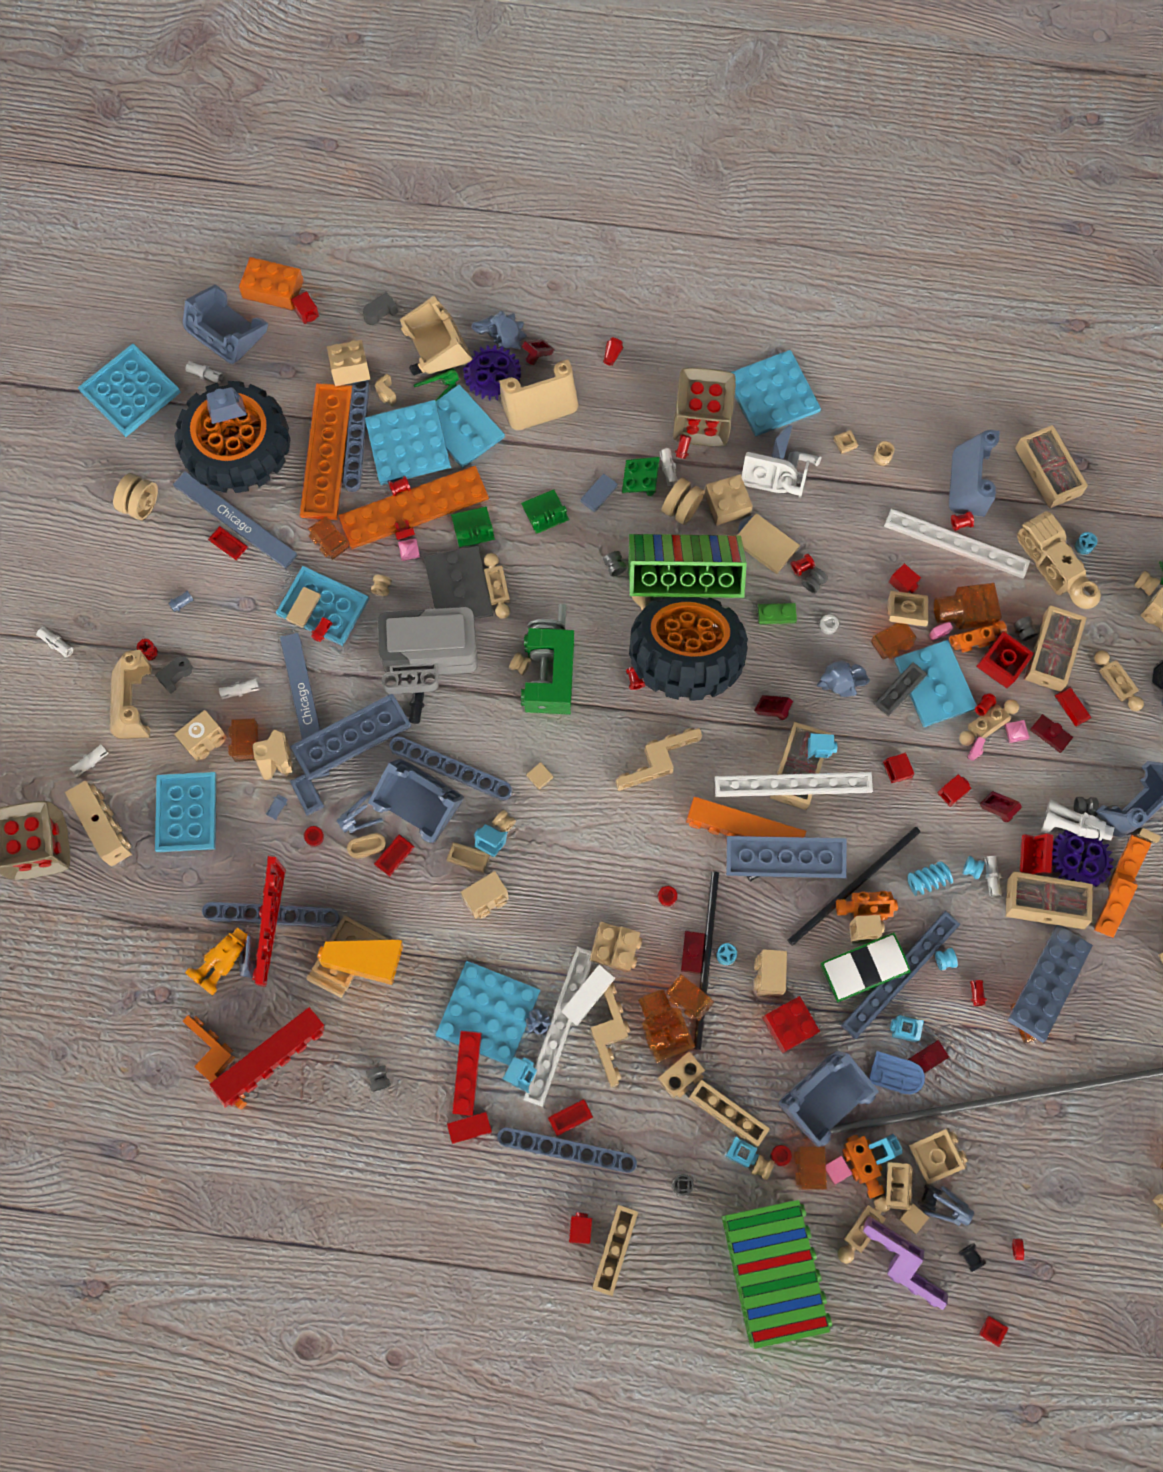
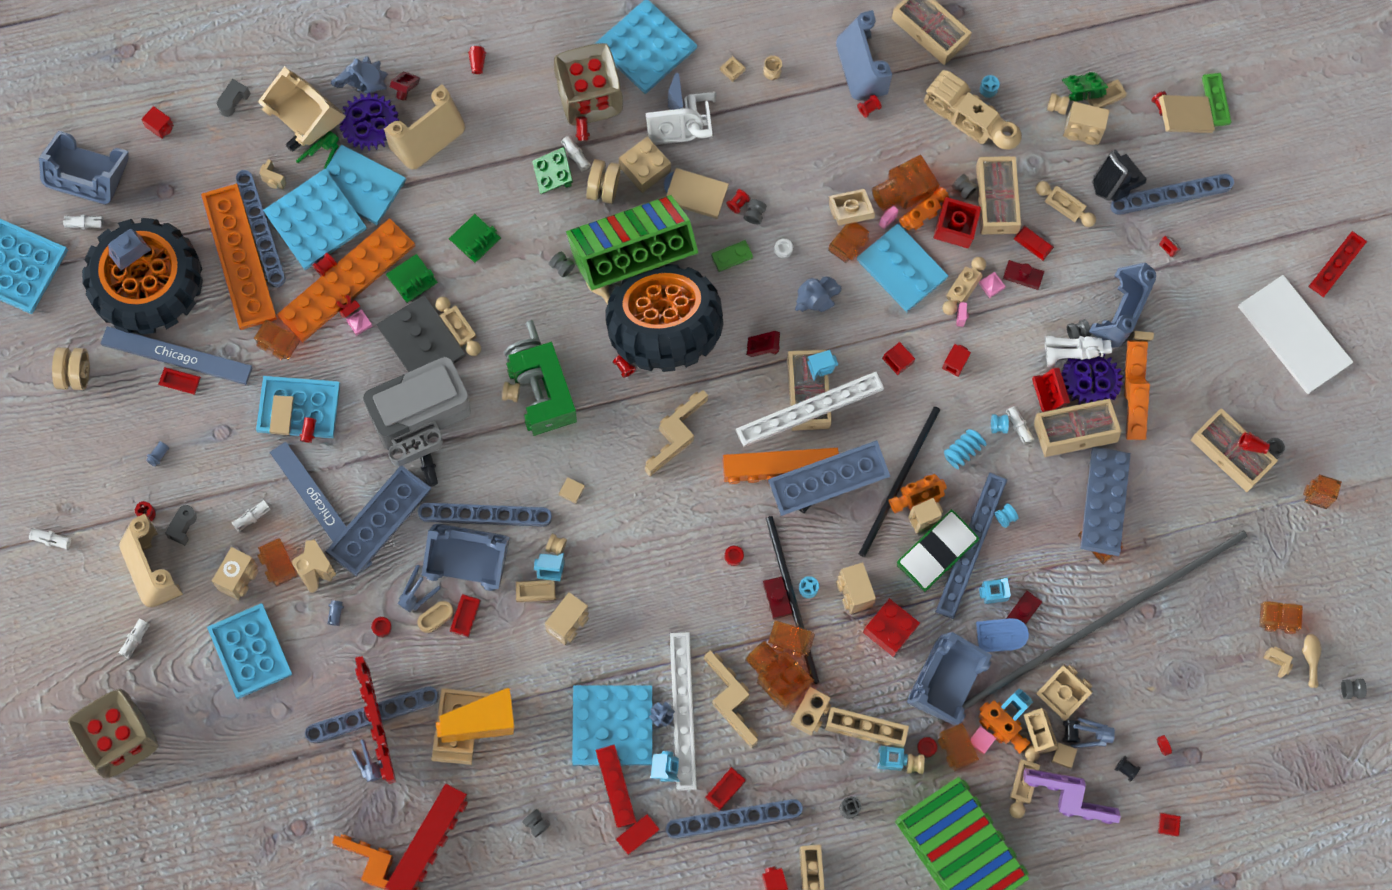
camera: 25 degrees left, 0 degrees up
(99, 823) = (170, 691): tan brick -> none
(221, 958) = (341, 772): light orange piece -> none
(270, 283) = (113, 110): orange brick -> none
(307, 794) = (358, 590): sand blue tile -> none
(348, 362) = (225, 162): tan brick -> none
(381, 585) = (347, 366): tan wheel -> none
(588, 994) = (698, 672): white tile -> none
(599, 492) = (519, 201): sand blue tile -> none
(615, 947) = (705, 619): tan plate -> none
(900, 689) = (872, 284): dark grey tile -> none
(905, 580) = (838, 181): red brick -> none
(957, 543) = (872, 129): white tile -> none
(977, 989) = (1045, 535): red pin -> none
(988, 701) = (956, 266): red pin -> none
(1001, 806) = (1003, 358): dark red tile -> none

